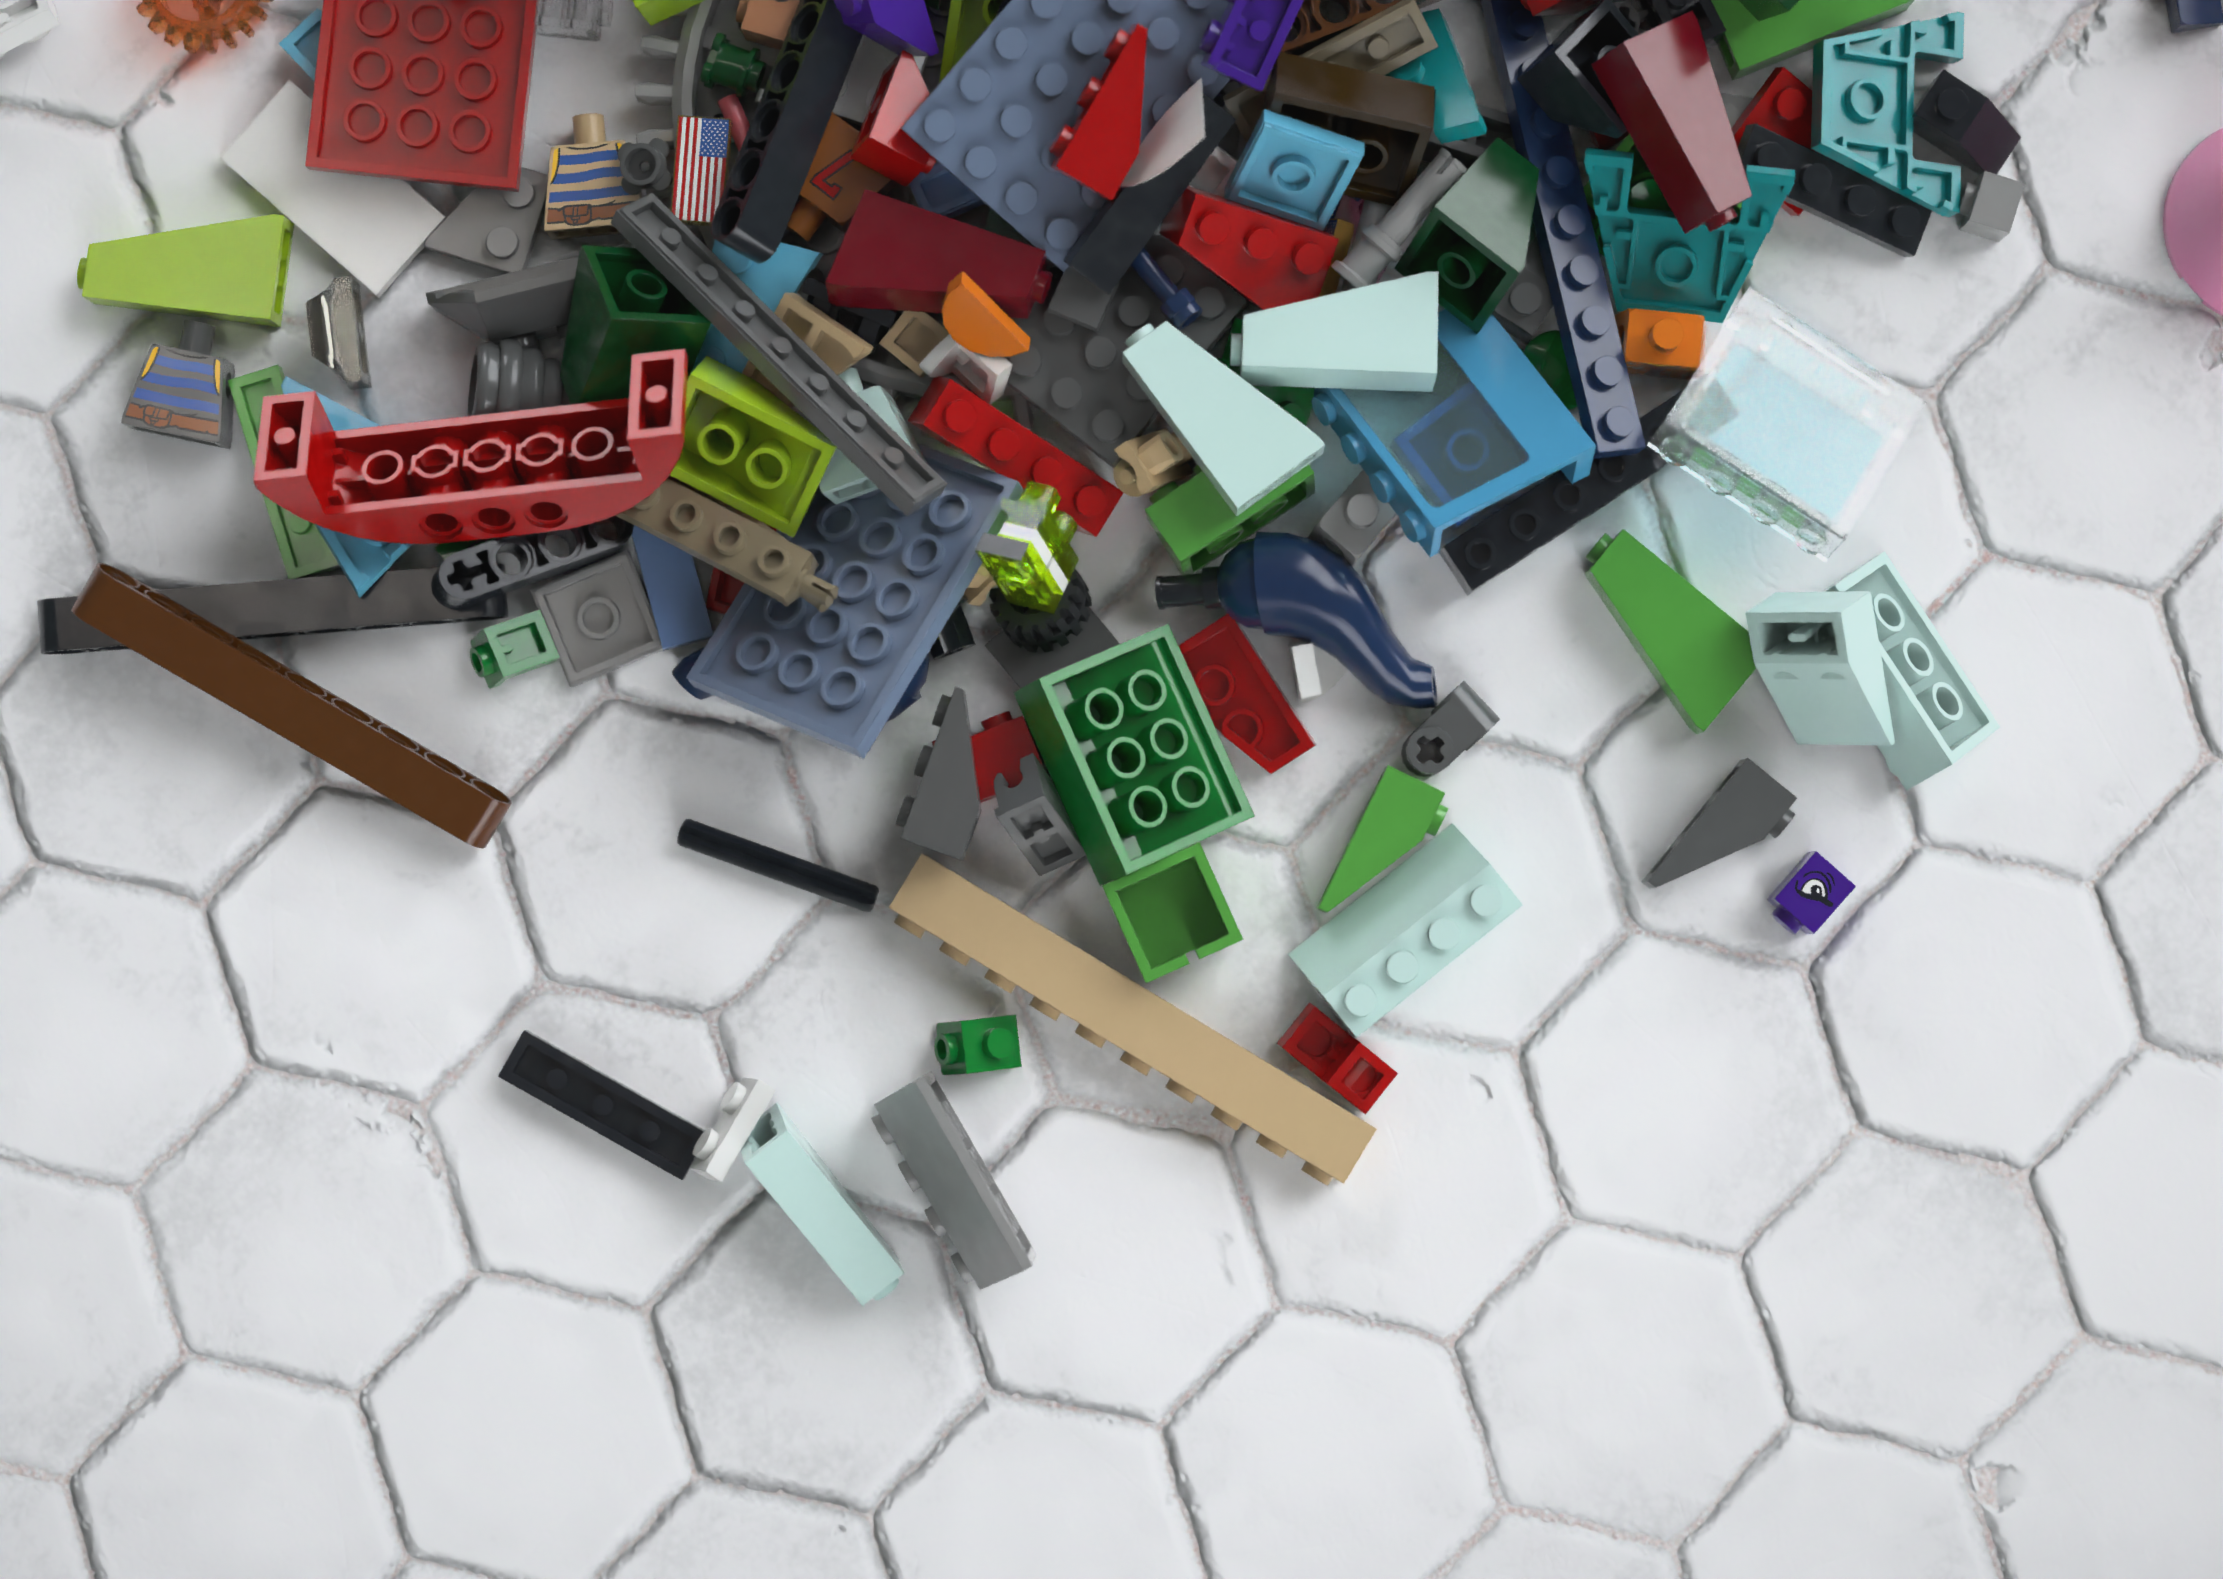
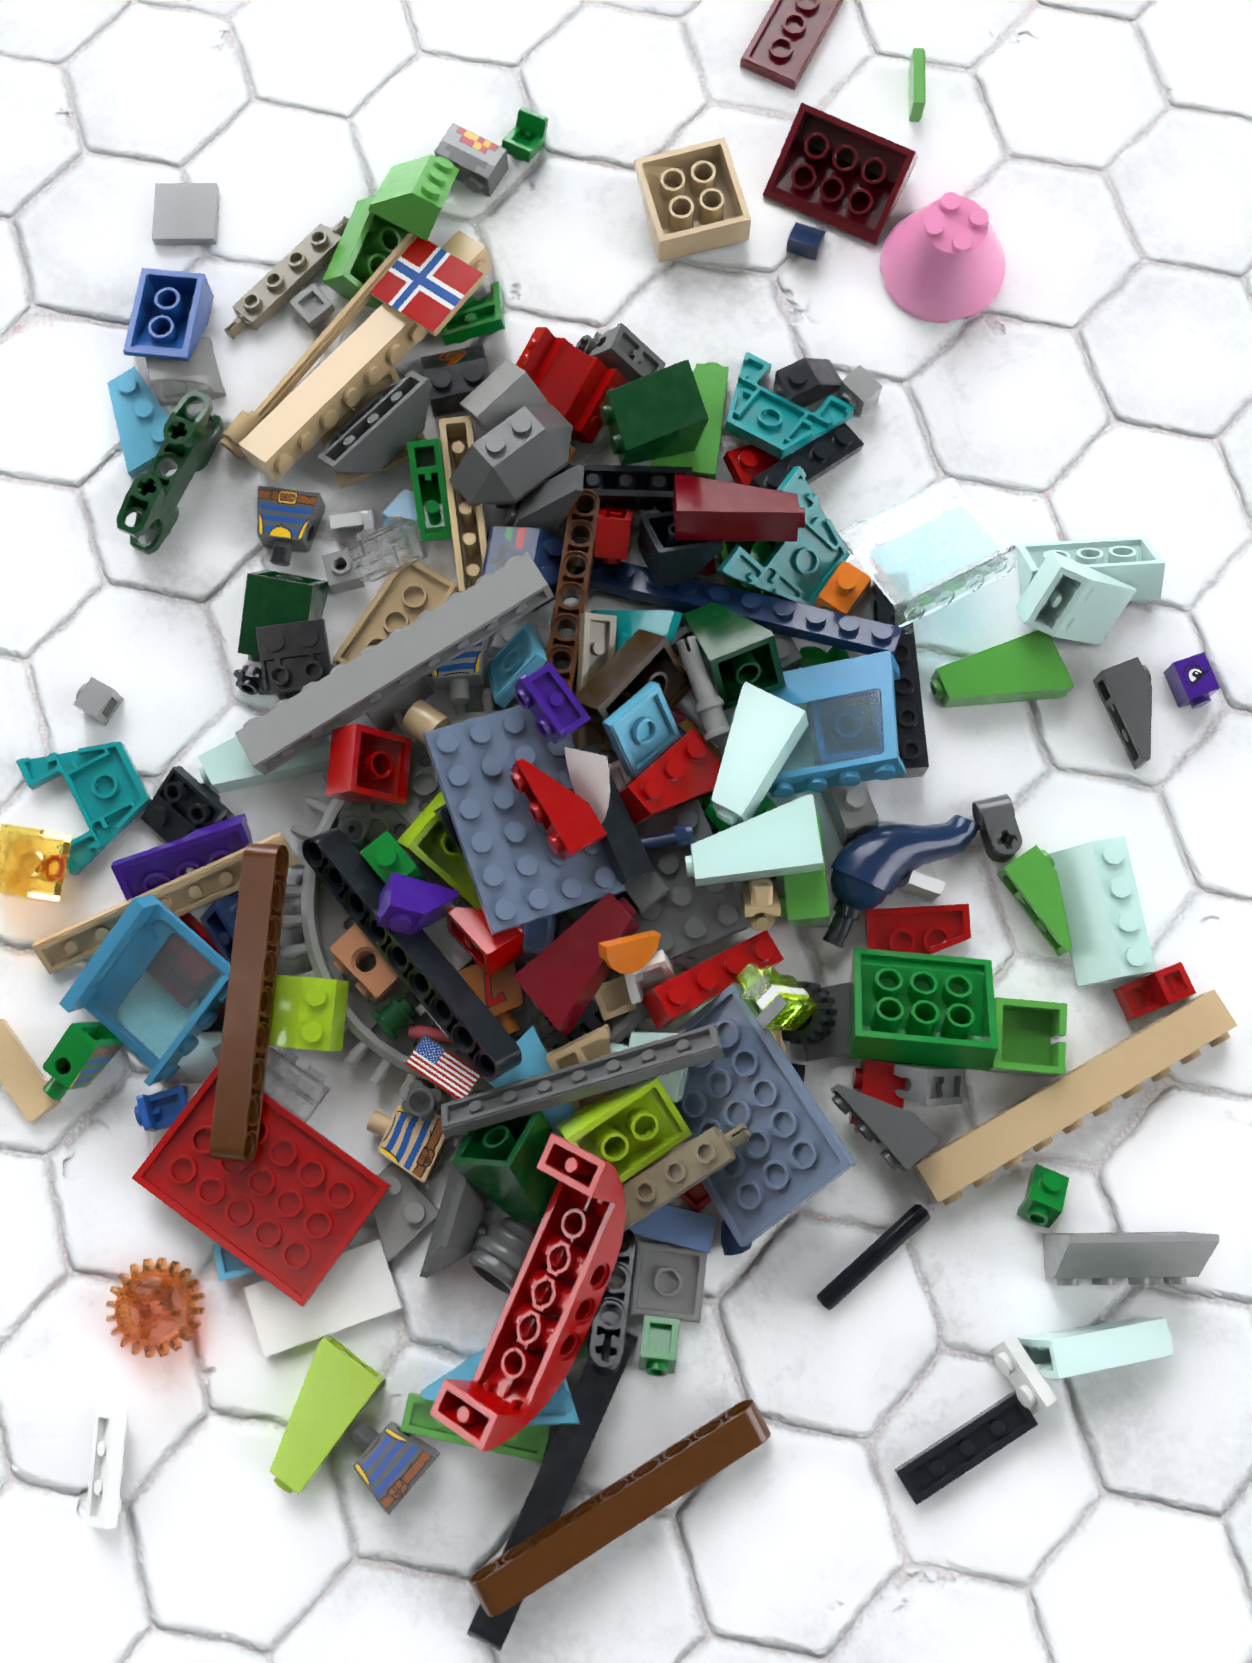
camera: 65 degrees left, 10 degrees down
(339, 332) = (411, 1343): clear smoke slope -> none

